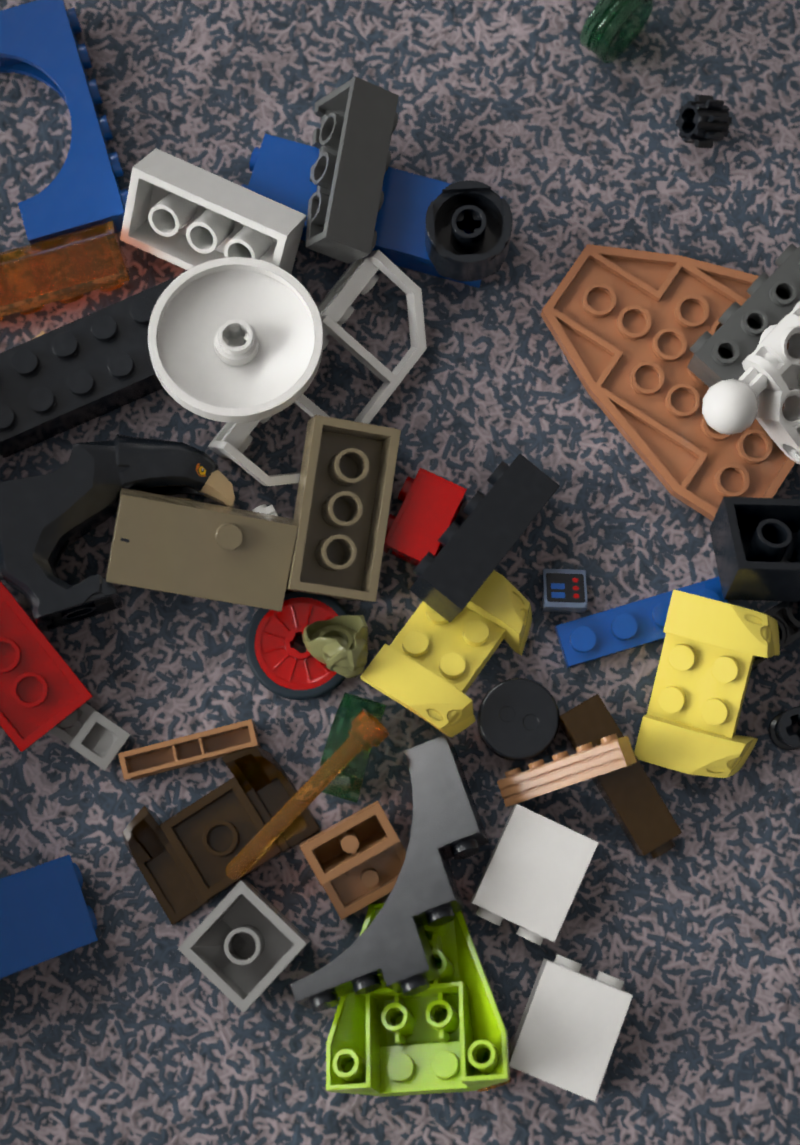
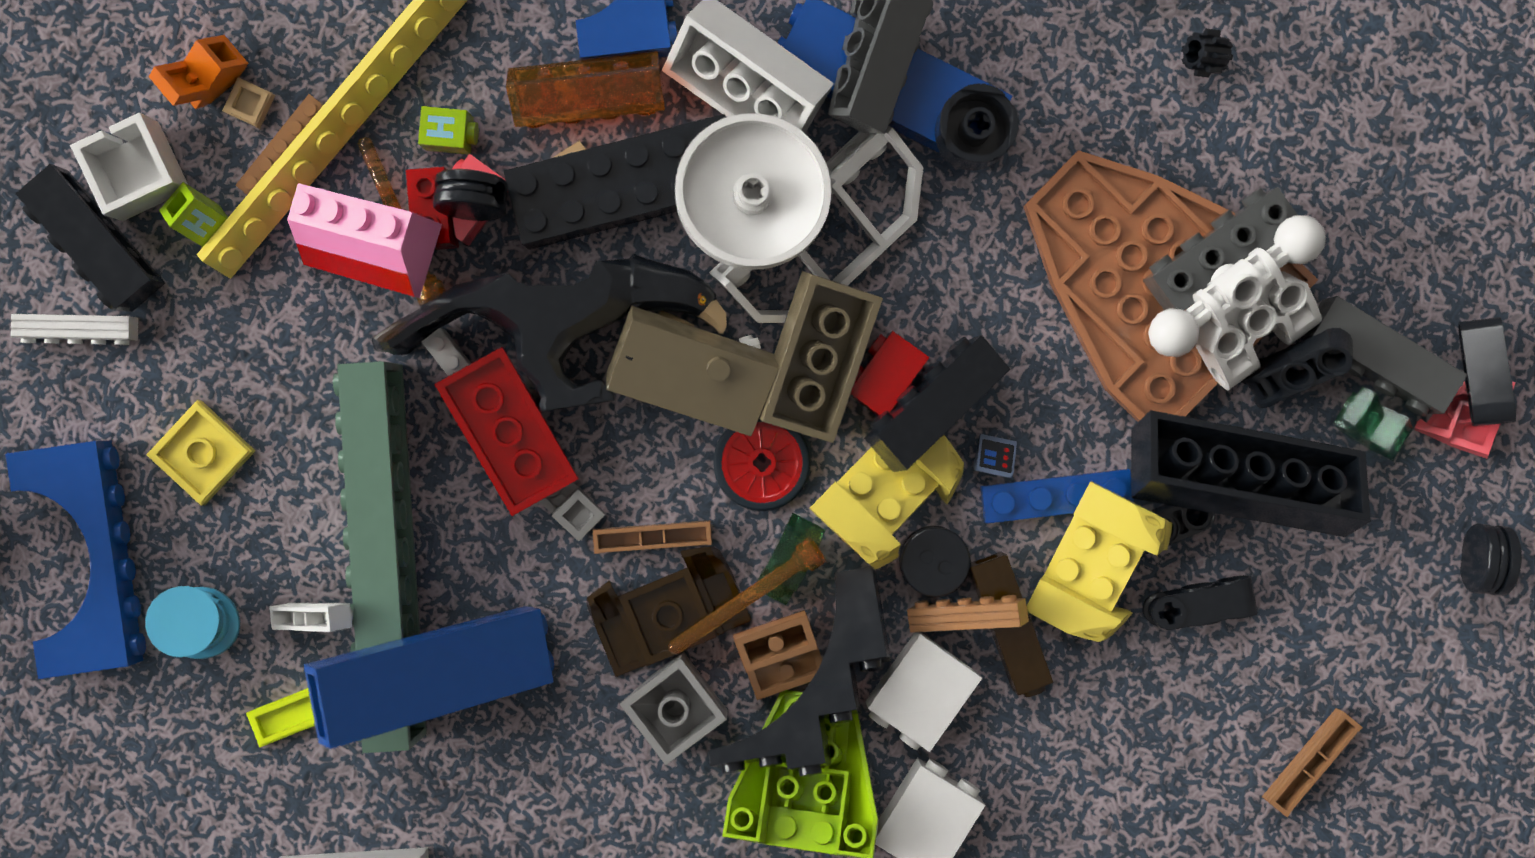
camera: 10 degrees right, 10 degrees up
(339, 643) = (796, 473): olive hair -> none

